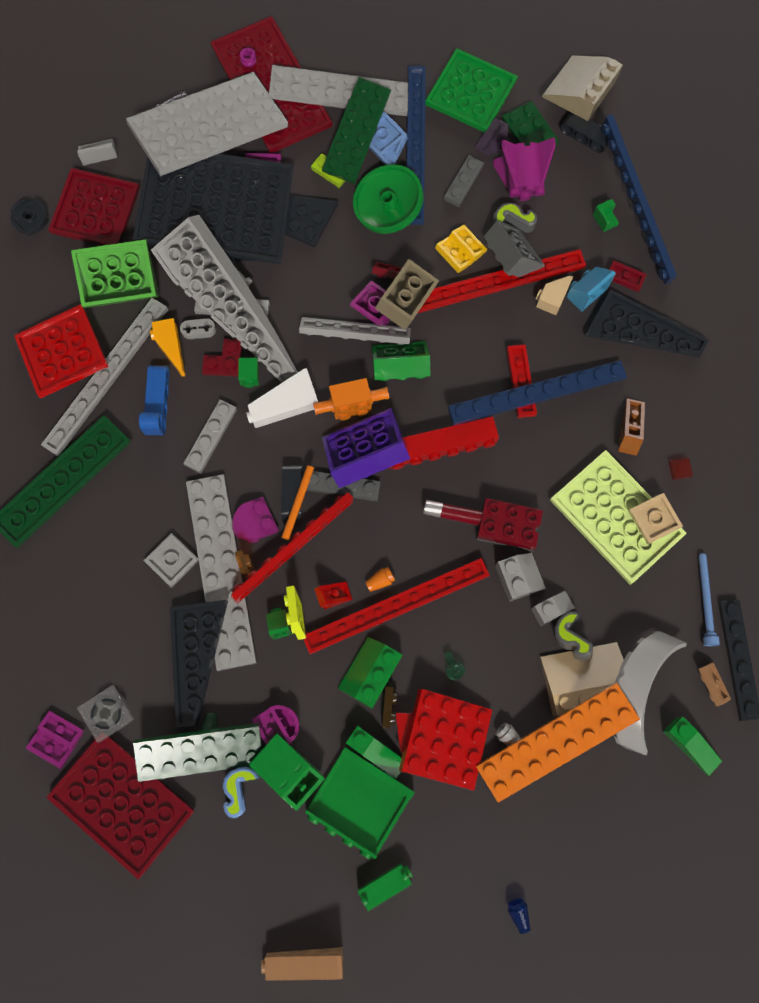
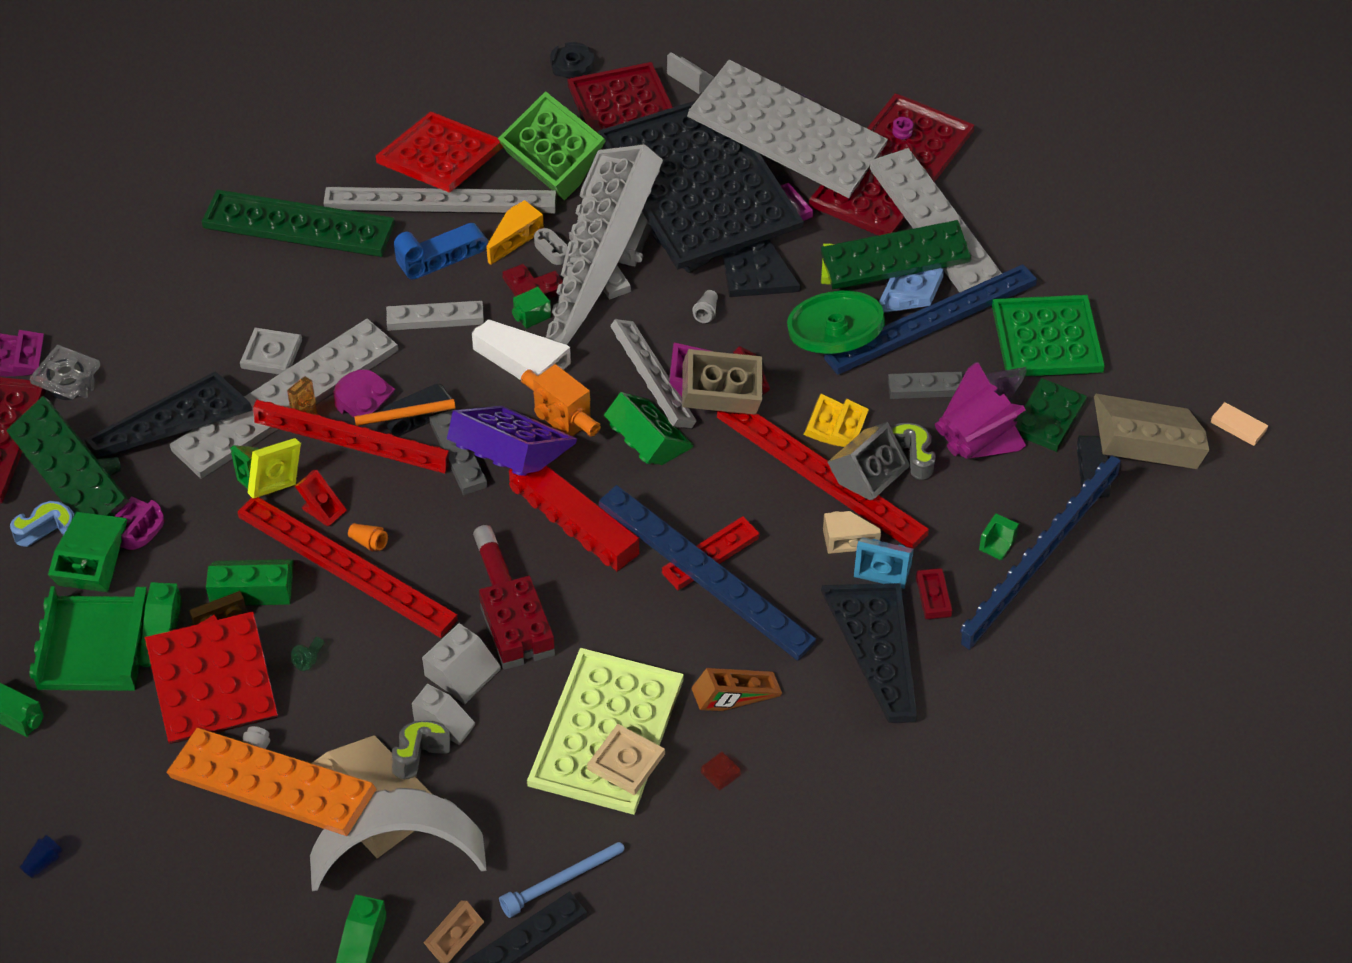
camera: 60 degrees right, 25 degrees down
(320, 267) = (705, 308): none -> light grey cone
(600, 37) = (1239, 424): none -> light nougat tile

